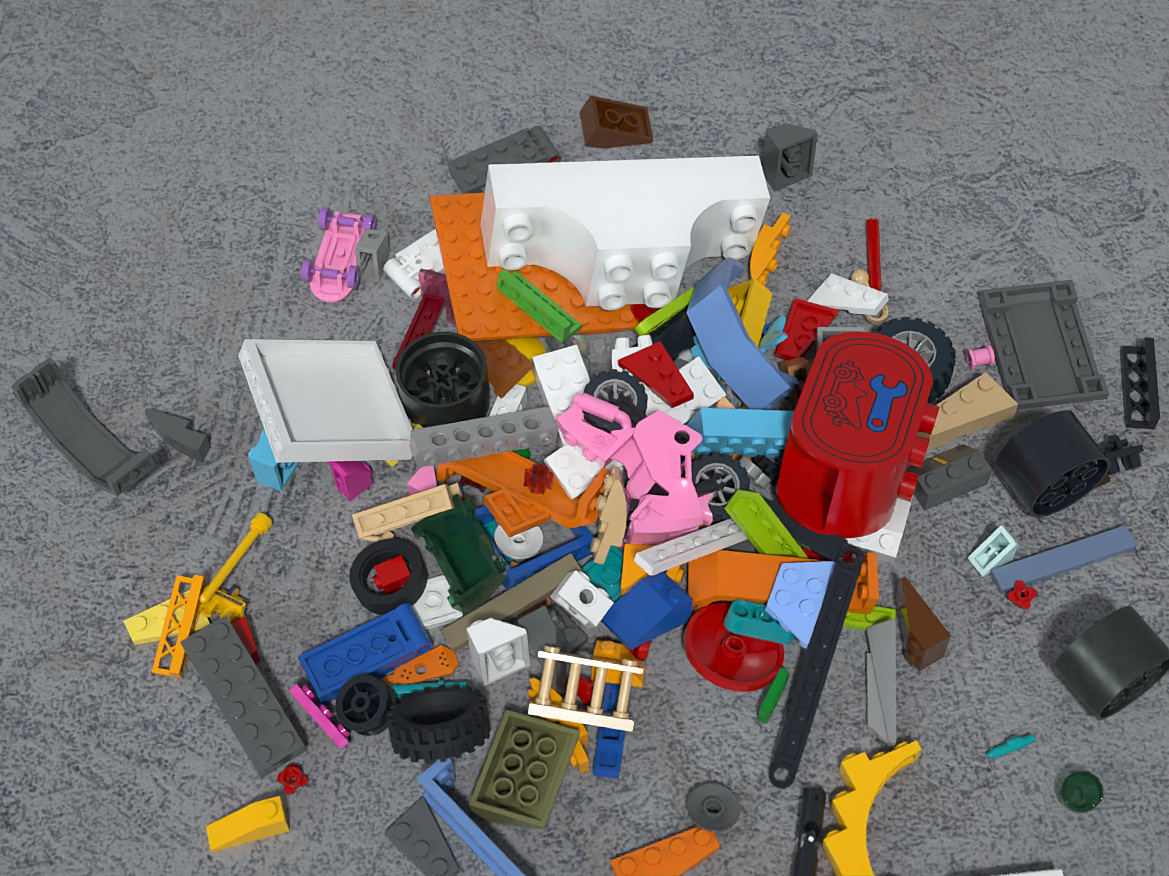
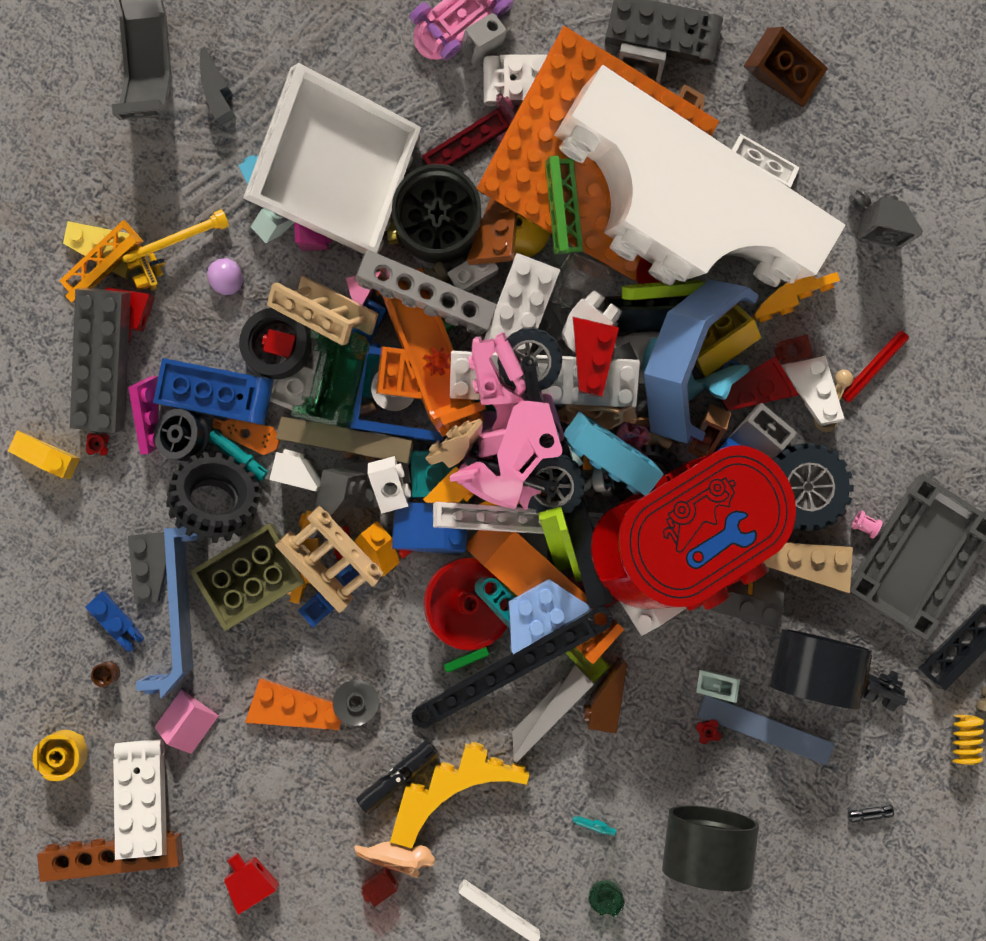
camera: 40 degrees right, 30 degrees up
(300, 563) = (225, 276): none -> lavender hair
(310, 487) = (270, 225): none -> light aqua slope
(804, 283) = (803, 350): none -> clear red brick

